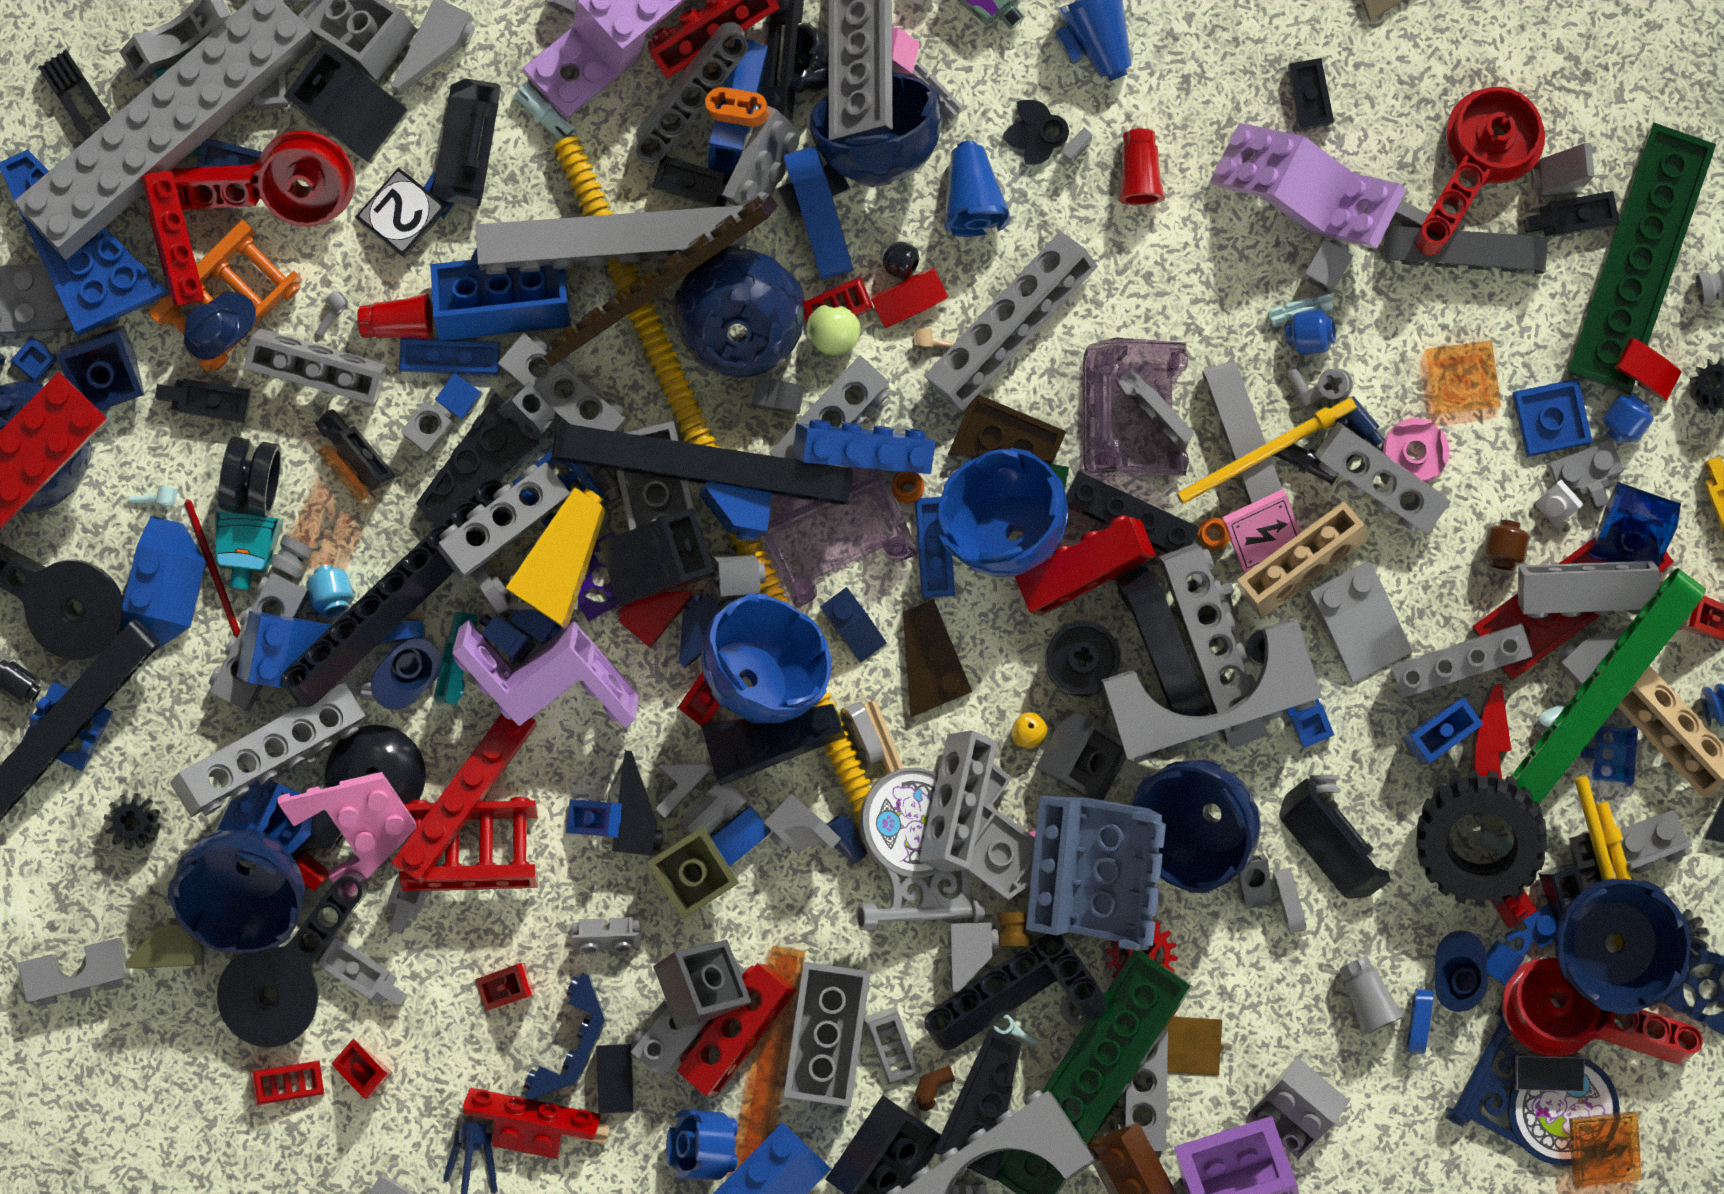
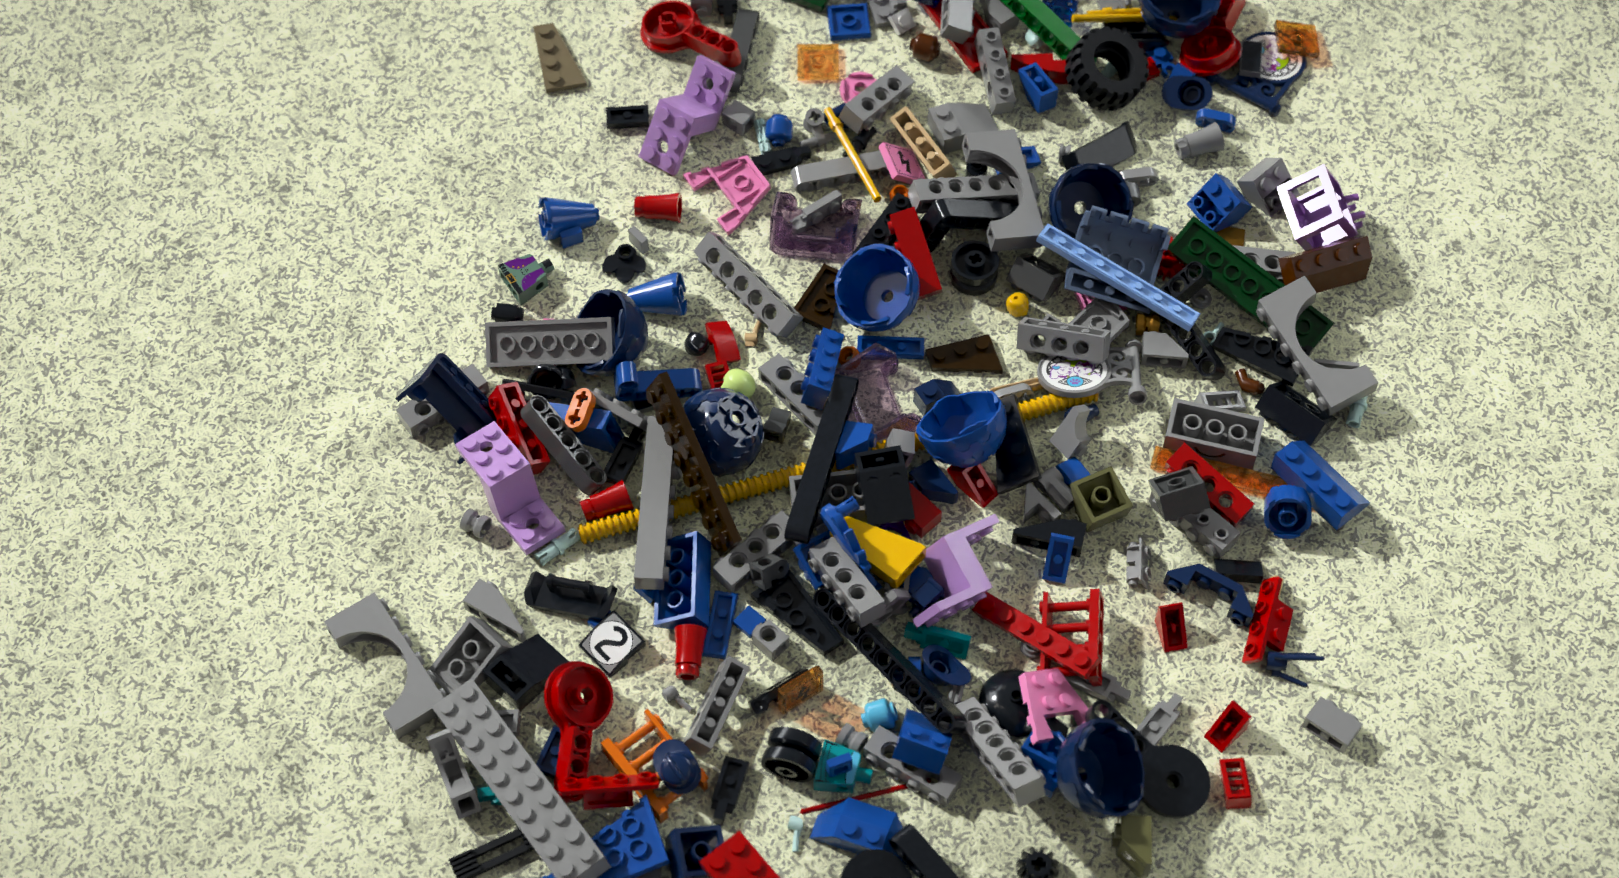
camera: 85 degrees left, 25 degrees down
(233, 541) = (839, 765): none -> blue tile
(581, 489) = (834, 519): none -> blue animal
(618, 171) = (607, 502): none -> red plant
(1065, 874) = (1118, 277): none -> light blue tile
(1201, 285) = (739, 182): none -> bright pink wing
(1252, 1031) = (1219, 203): none -> blue slope
(1258, 340) = (781, 159): none -> black hinge

